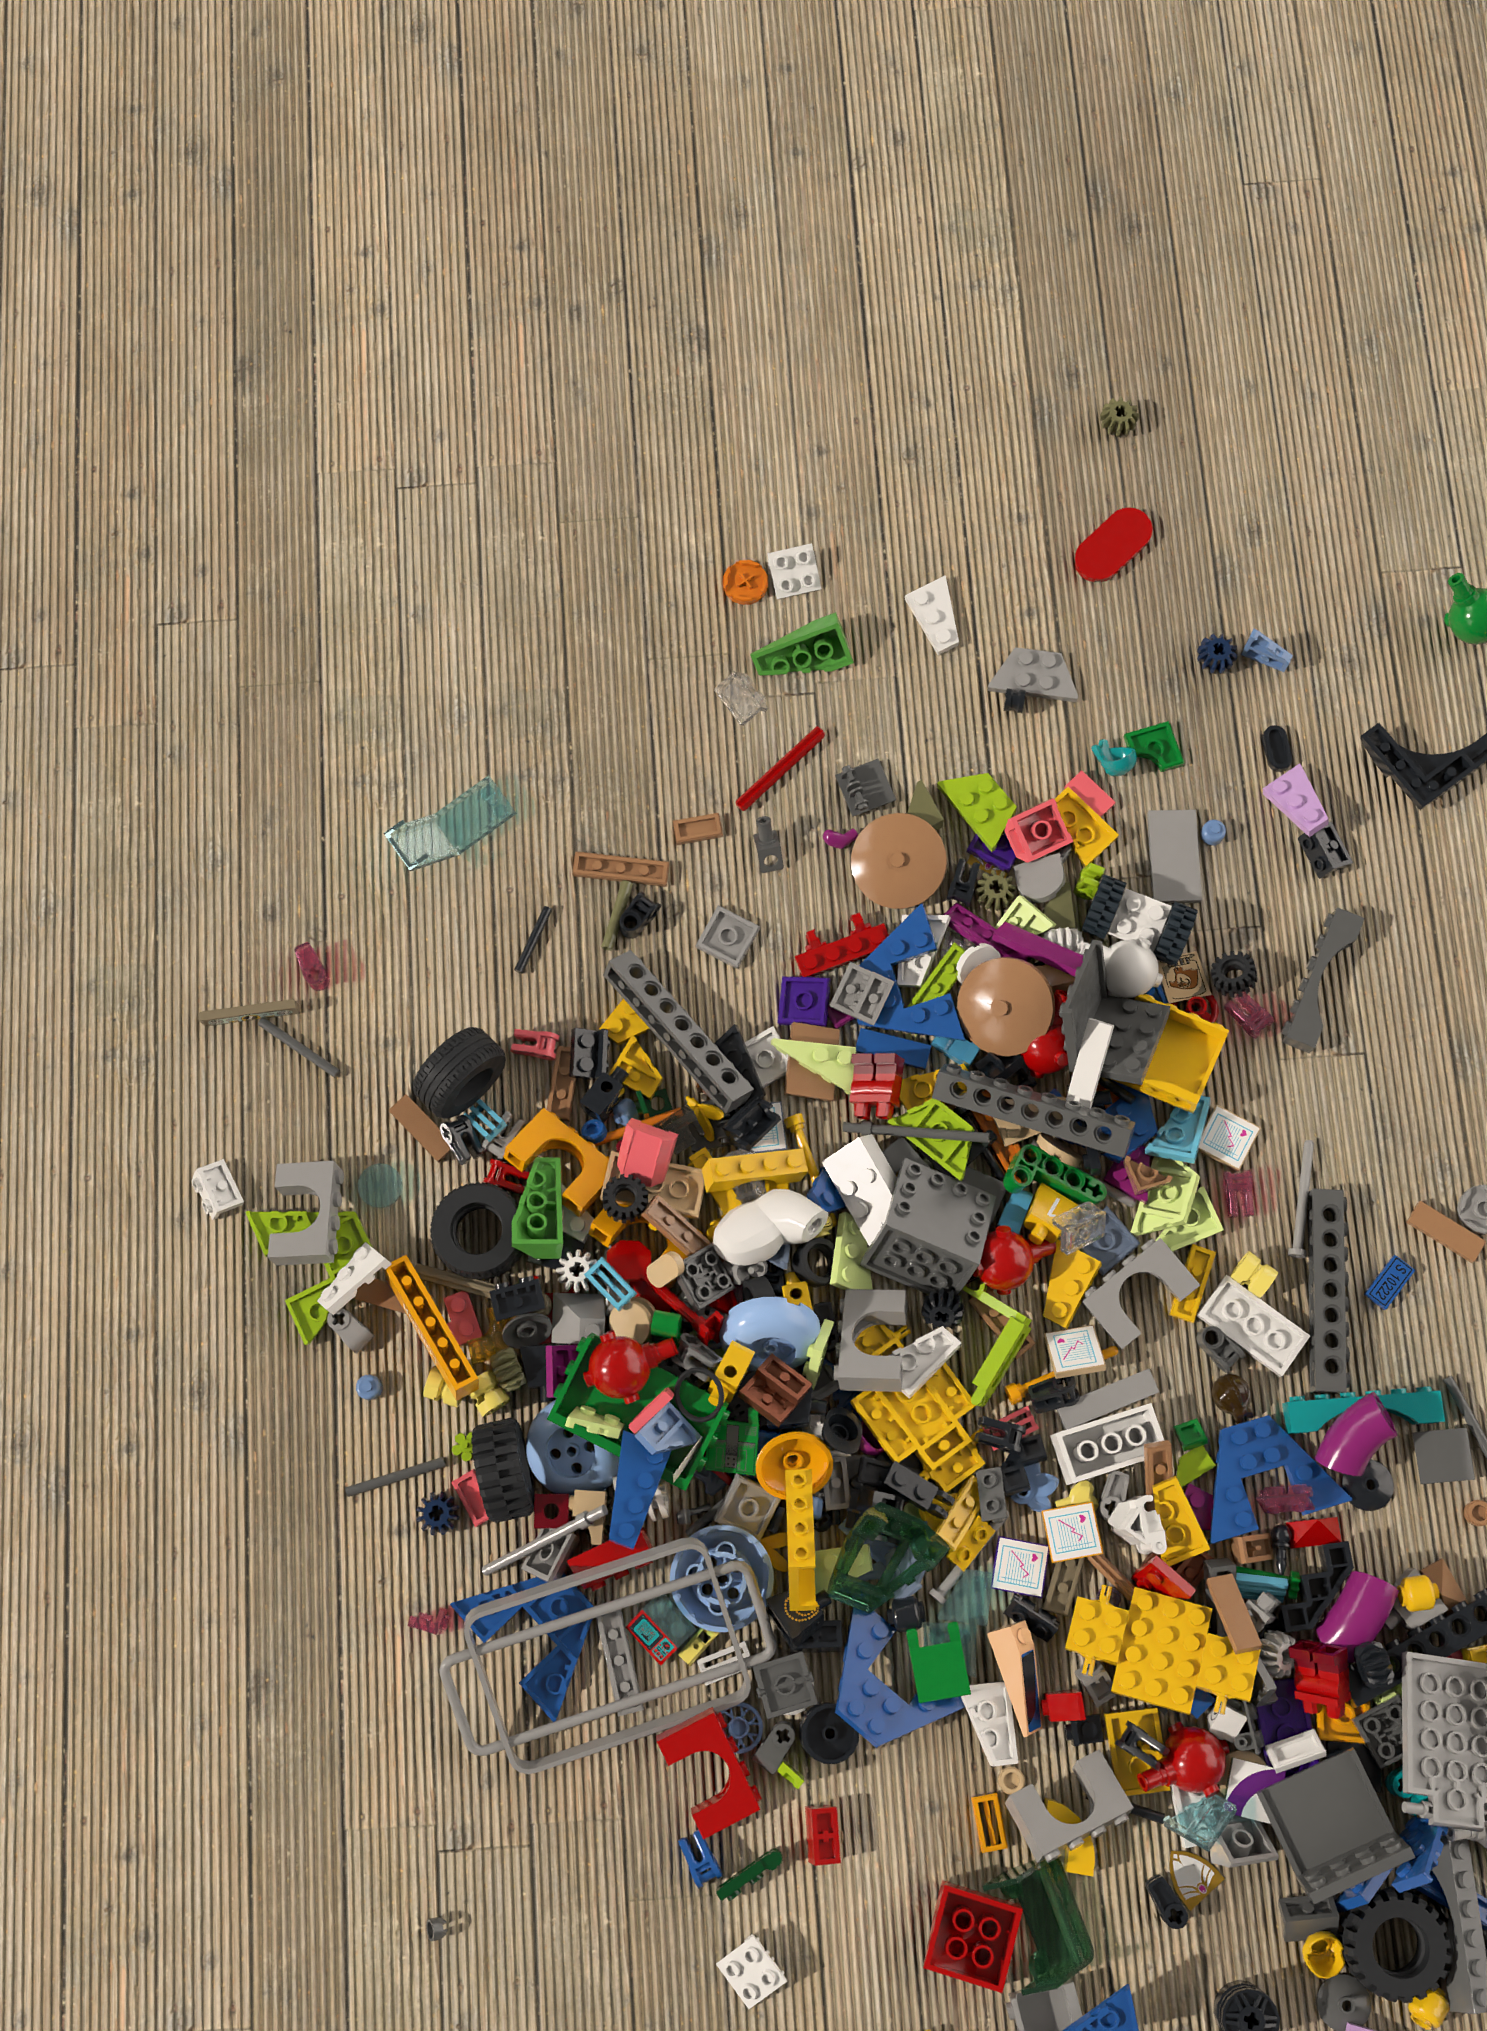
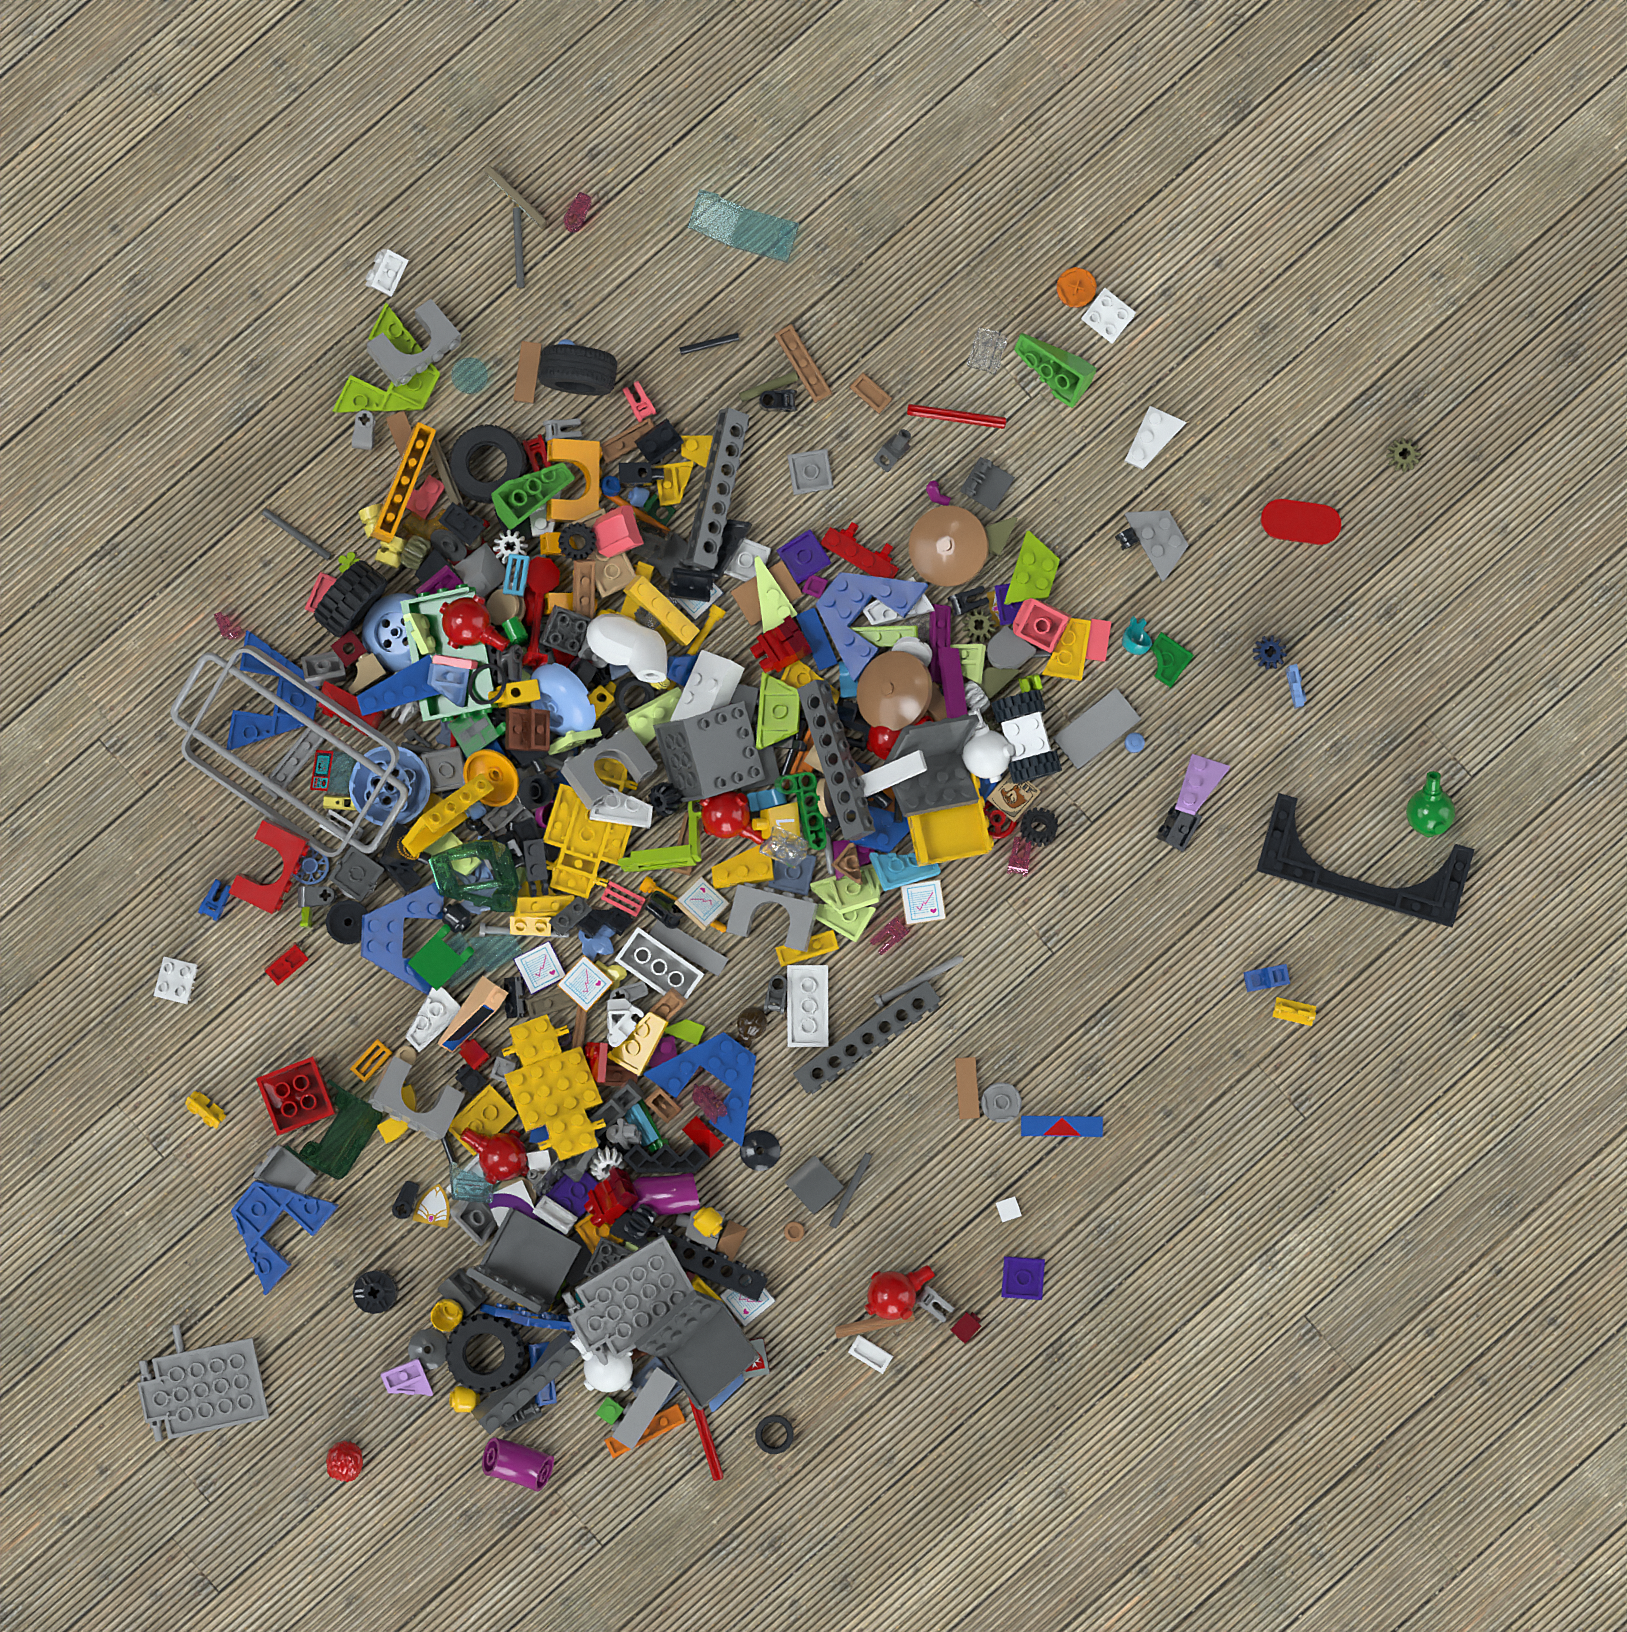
camera: 55 degrees right, 10 degrees up
(359, 1270) = (401, 407): white wing -> none
(369, 1387) = (338, 472): medium blue piece -> none
(430, 1508) = (296, 570): dark blue gear -> none
(435, 1928) = (54, 772): dark grey hinge -> none
(462, 1139) = (544, 402): black piece -> none
(477, 1112) = (565, 398): medium azure tile -> none
(581, 1521) = (356, 672): light grey bar -> none
(665, 1269) = (550, 602): tan tile -> none
(687, 1460) = (443, 707): white sticker -> none
(703, 1112) = (676, 548): yellow piece -> none
(751, 1873) = (230, 937): dark green hinge -> none
(862, 994) = (835, 590): light grey slope -> none
(868, 1128) = (748, 663): dark grey bar -> none
(1010, 1435) = (609, 900): black piece -> none
(1135, 1738) = (485, 1111): black piece -> none
(1190, 1434) = (705, 1015): green tile -> none
(1233, 1614) = (607, 1114): medium nougat tile -> none
(1254, 1274) = (841, 982): light yellow wheel -> none
(1277, 748) = (1231, 743): black tile -> none
(1281, 1537) = (684, 1117): black bar -> none
(1305, 1024) = (1122, 878): dark grey arch -> none
(1310, 1415) = (832, 1146): teal arch -> none
(1356, 1436) = (781, 1118): magenta brick -> none
(1389, 1282) = (904, 1074): blue tile -> none

